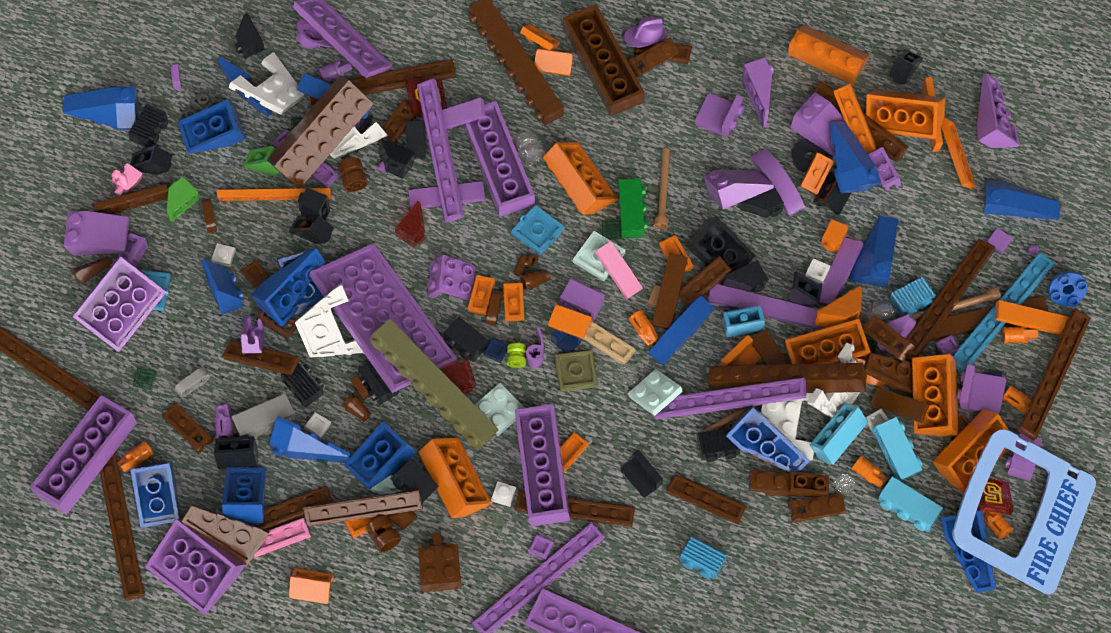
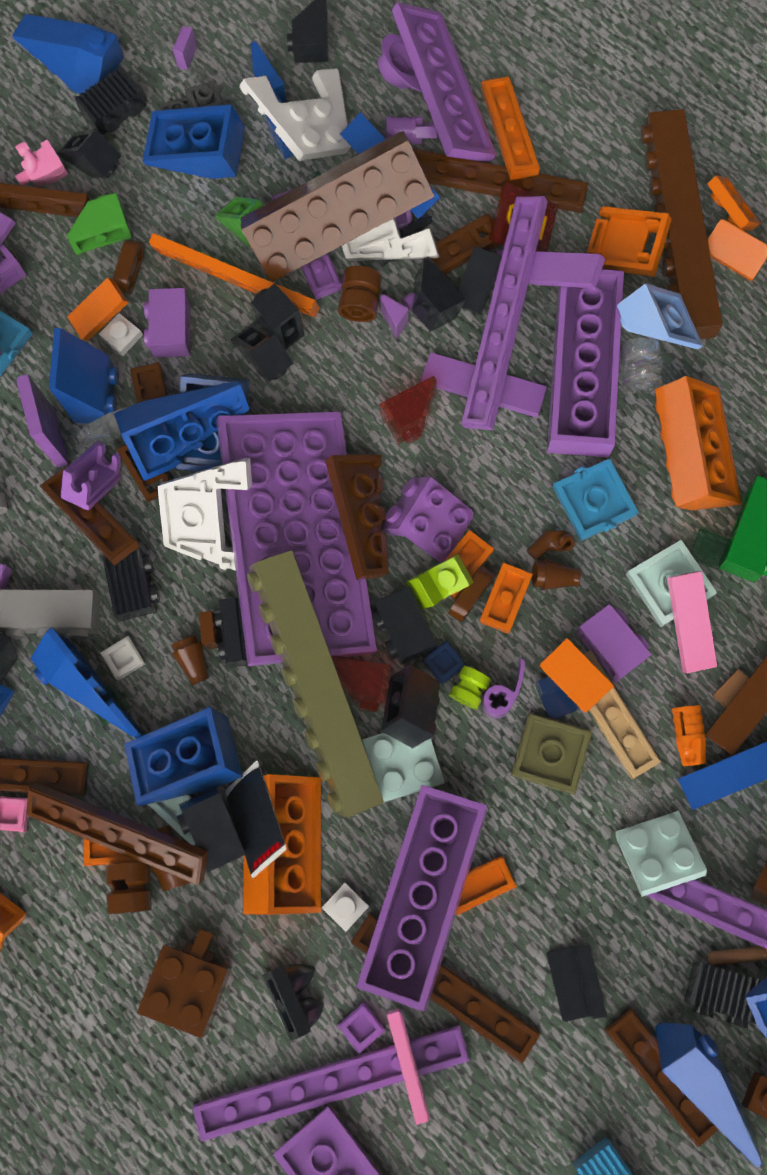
camera: 30 degrees right, 10 degrees up
(204, 245) = (97, 309): none -> orange tile
(212, 316) = (42, 421): none -> medium lavender tile
(243, 309) = (99, 430): none -> clear slope
(250, 236) = (168, 322): none -> medium lavender brick
(377, 177) = (394, 314): none -> medium lavender slope
(392, 45) = (510, 128): none -> orange tile
(409, 286) = (357, 498): none -> reddish brown wing
(436, 466) = (255, 819): none -> black sticker
(474, 307) = (439, 582): none -> lime slope
(488, 82) = (625, 239): none -> orange container
(490, 375) = (411, 706): none -> black brick
(492, 546) = (295, 1013): none -> black tile
(527, 116) = (659, 315): none -> light blue slope
(573, 547) = (408, 1066): none -> bright pink tile
(715, 477) = (696, 1069): none -> wedge

